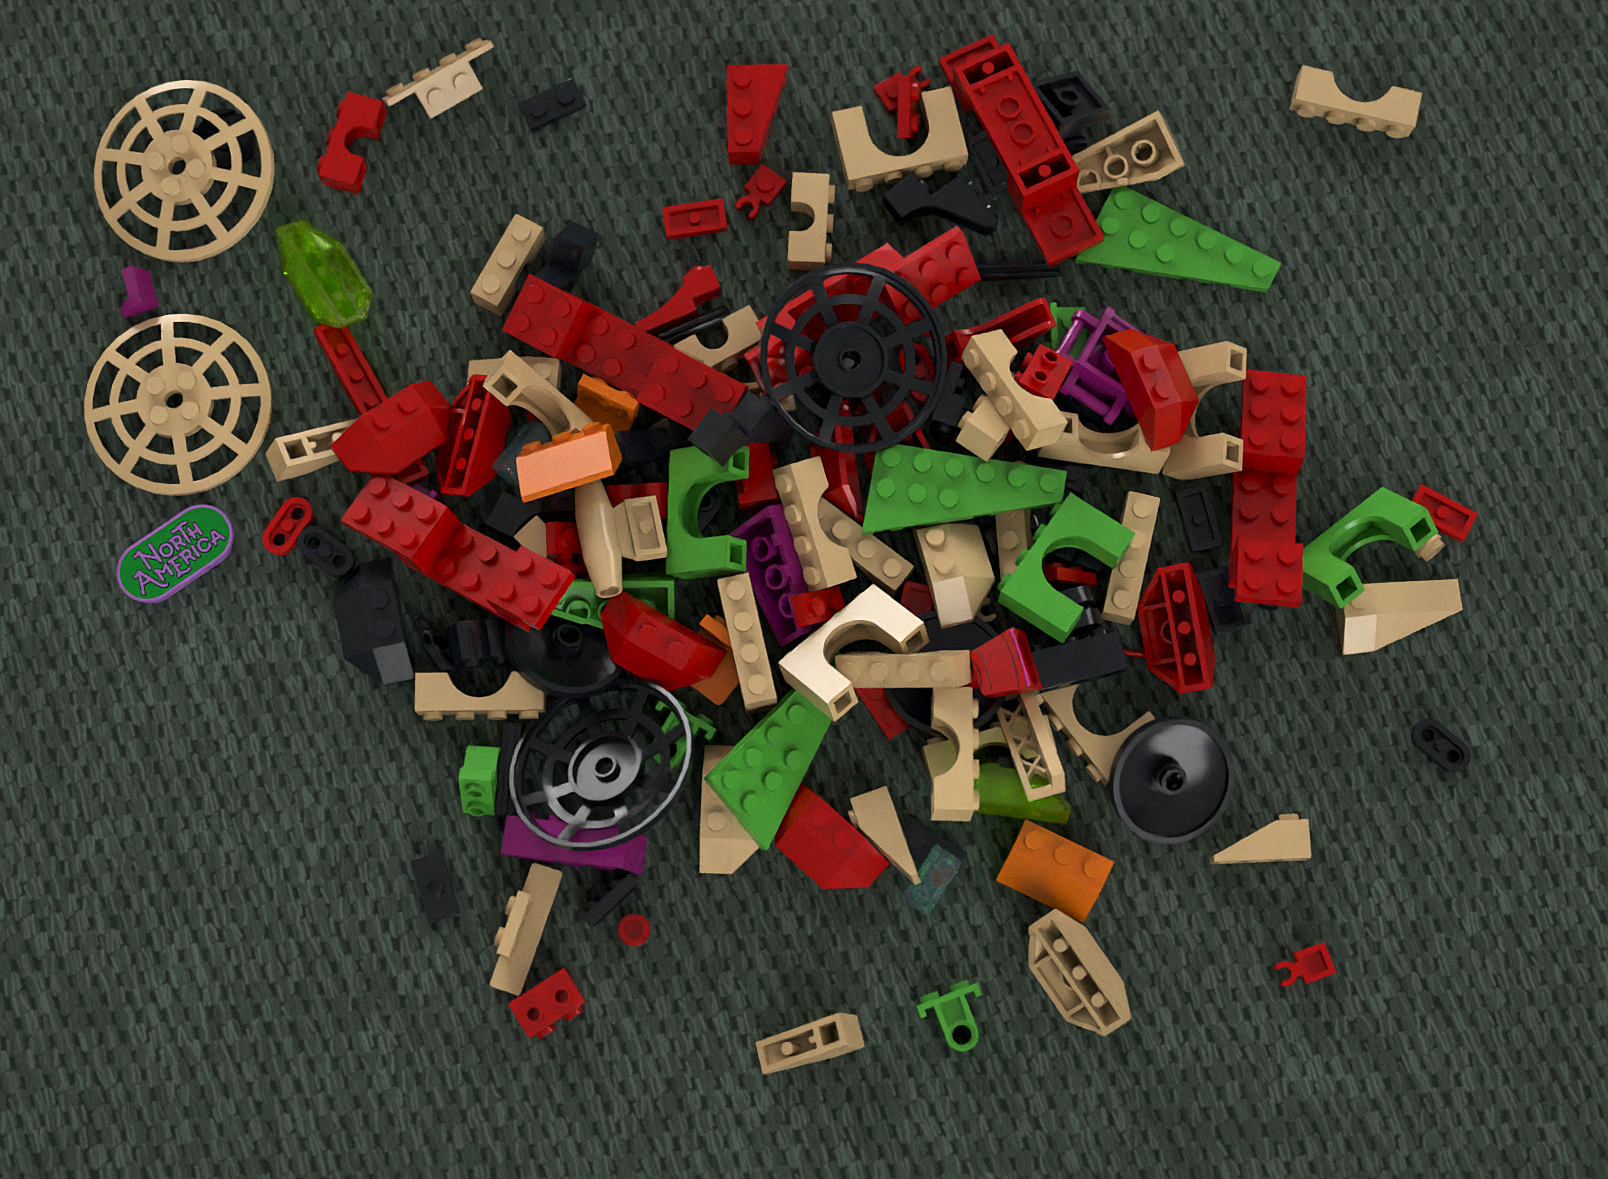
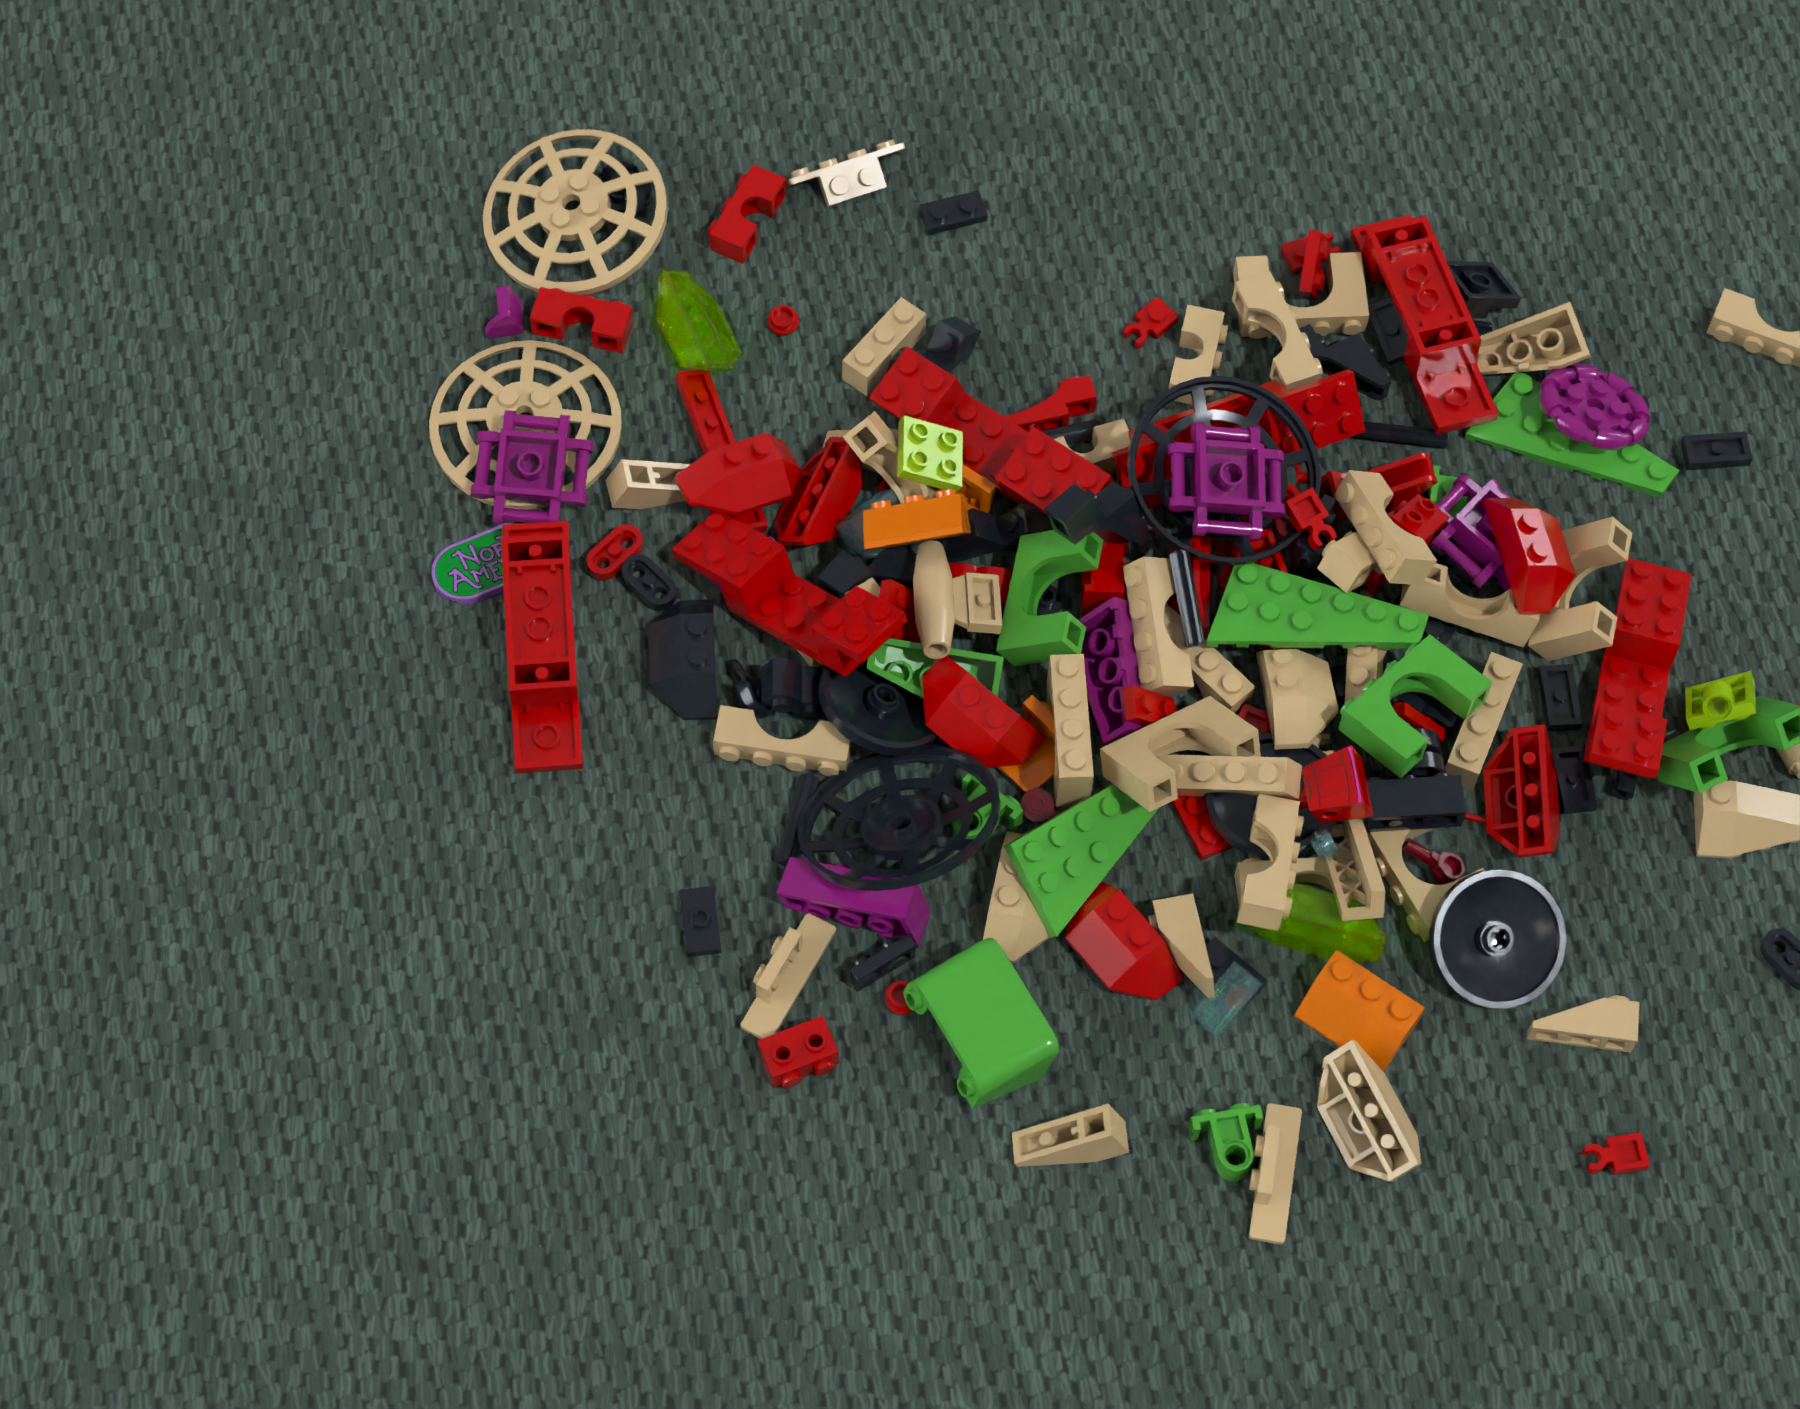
camera: 10 degrees right, 15 degrees down
(186, 280) = (558, 310): none -> red arch
(191, 458) = (531, 467): none -> magenta brick
(231, 639) = (541, 647): none -> red bracket
(406, 251) = (783, 320): none -> red plate
(479, 780) = (766, 823): bright green pin -> none
(570, 384) = (930, 453): none -> lime plate
(694, 219) = (1080, 336): red plate -> none
(712, 948) = (986, 1021): none -> bright green windscreen
(731, 716) = (1038, 805): none -> dark red plate
(751, 108) = (1155, 242): red wedge -> none
(837, 494) = (1187, 598): none -> black axle
(857, 373) = (1227, 479): none -> magenta brick
(864, 163) = (1263, 304): none -> tan arch
(938, 388) = (1308, 513): none -> red plate
(1000, 720) = (1324, 844): none -> clear light blue plate
(1000, 1039) = (1274, 1174): none -> tan bracket
(1114, 711) = (1444, 866): none -> dark red plate
(1195, 198) = (1593, 400): none -> magenta plate
(1313, 236) = (1716, 450): none -> black plate
(1348, 502) = (1720, 701): none -> lime plate

